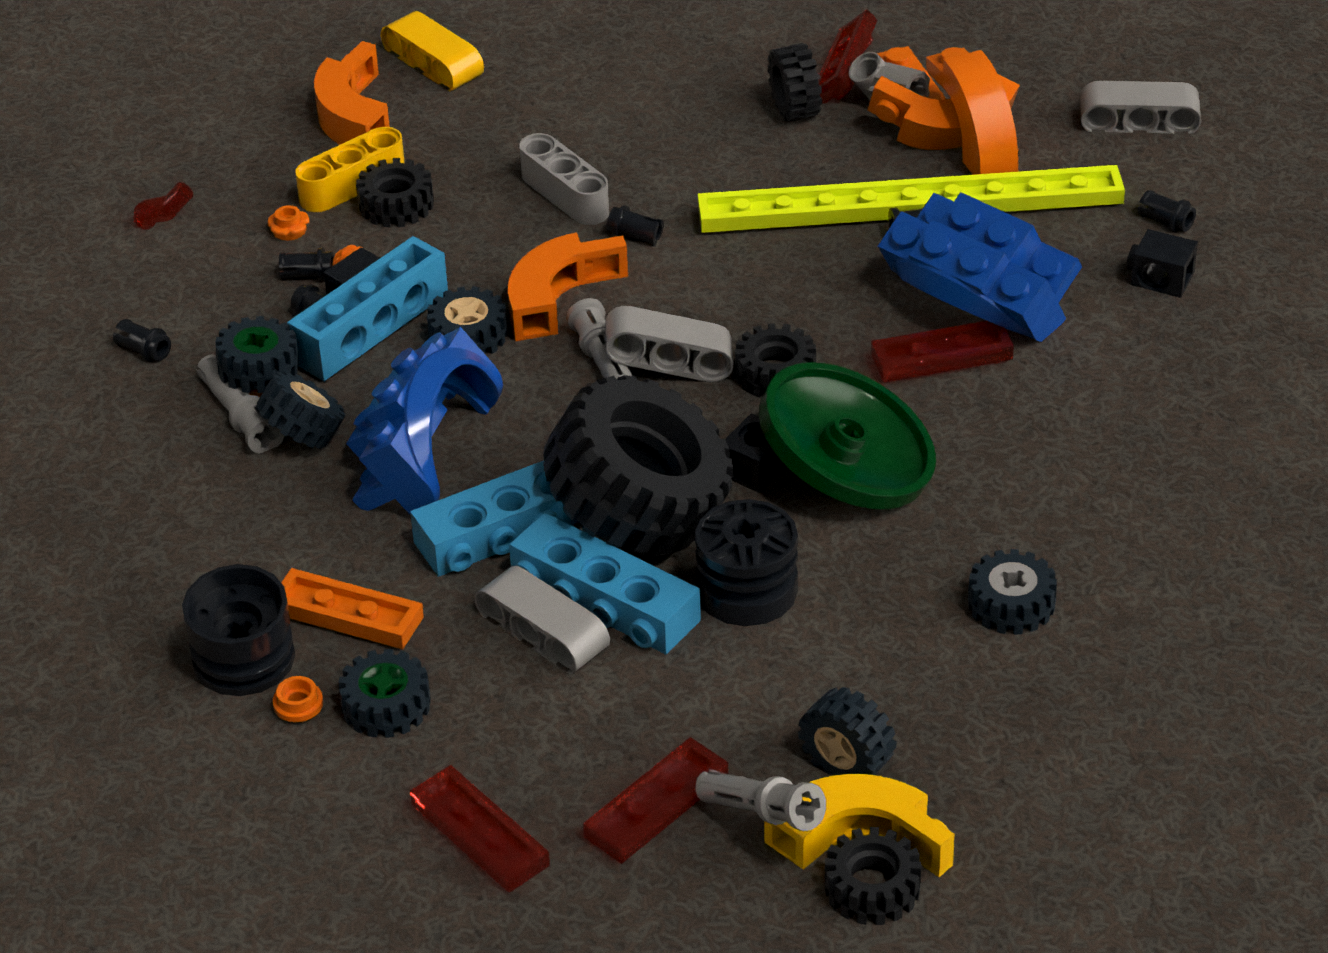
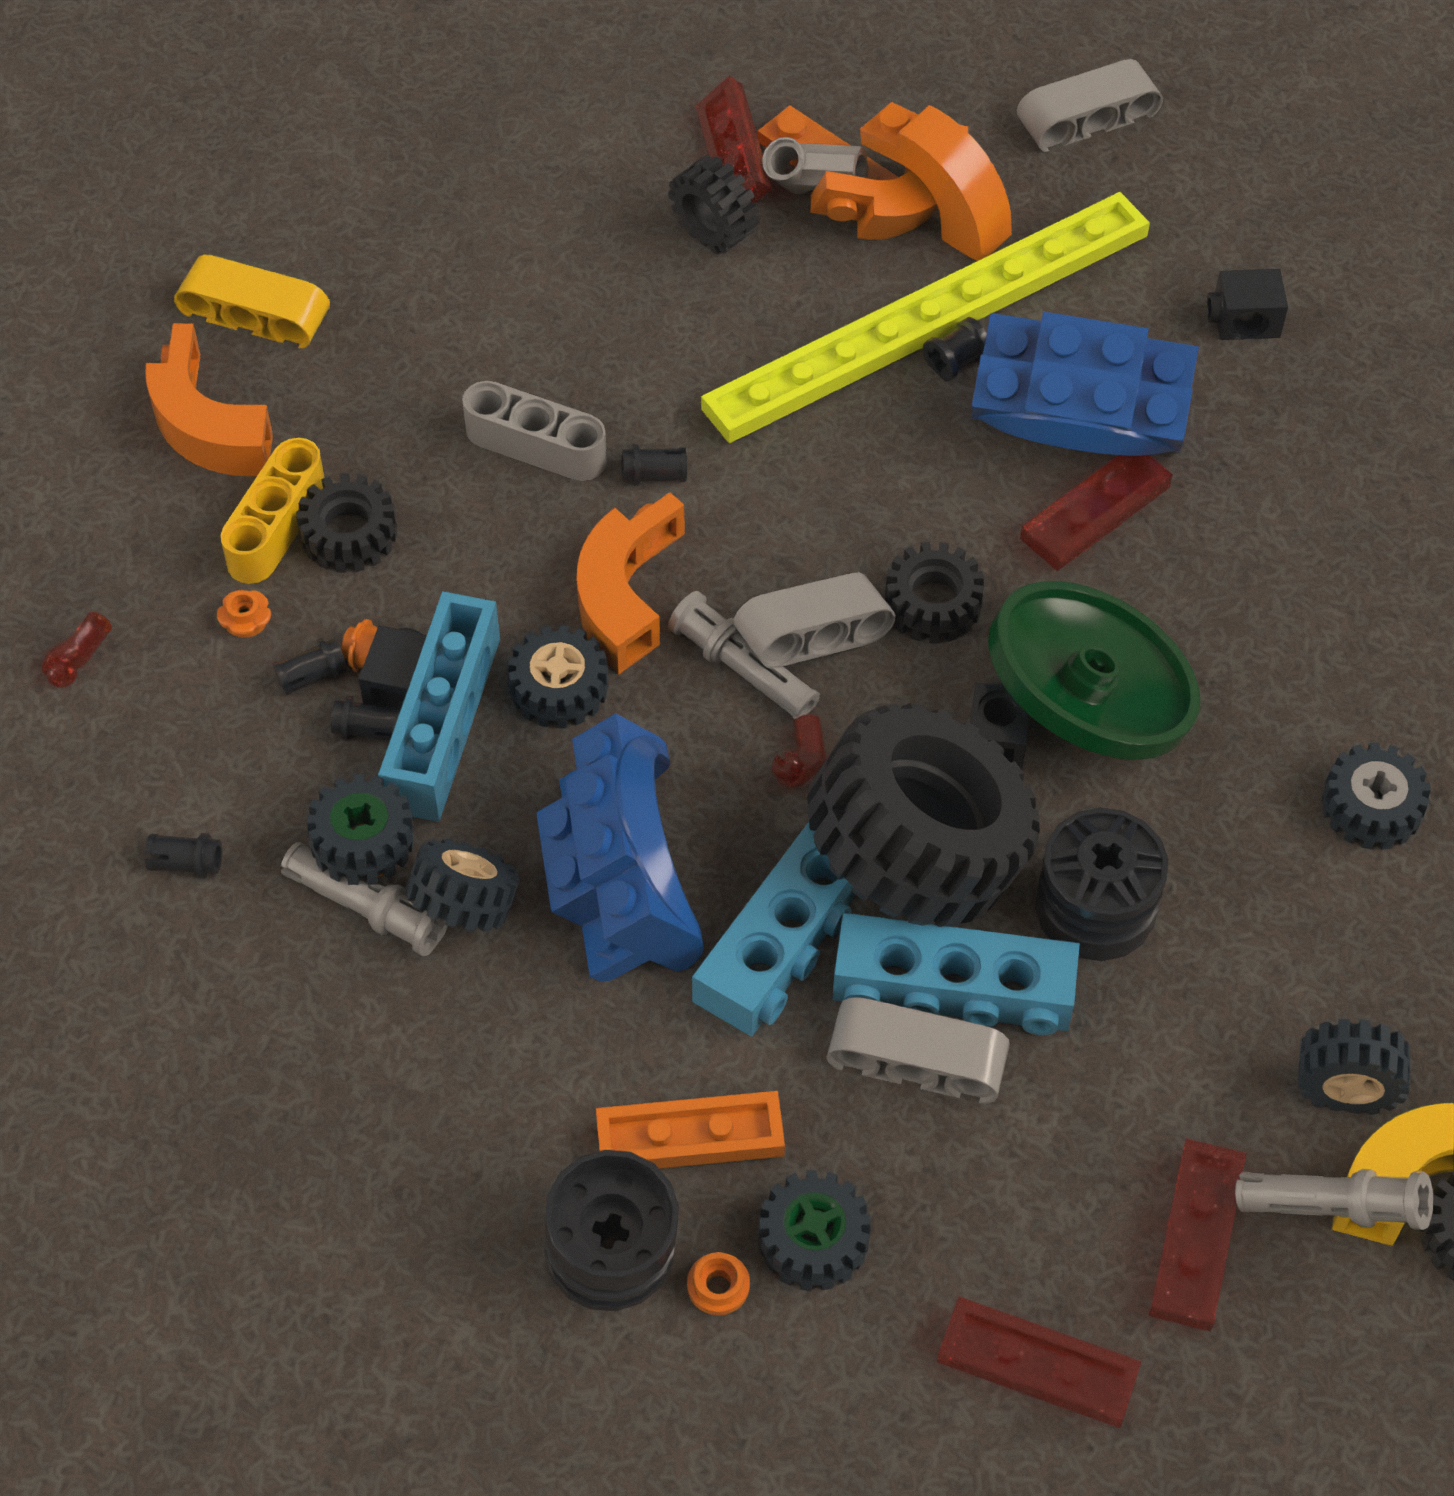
camera: 30 degrees left, 15 degrees up
(1167, 211) = (1202, 231): black pin -> none

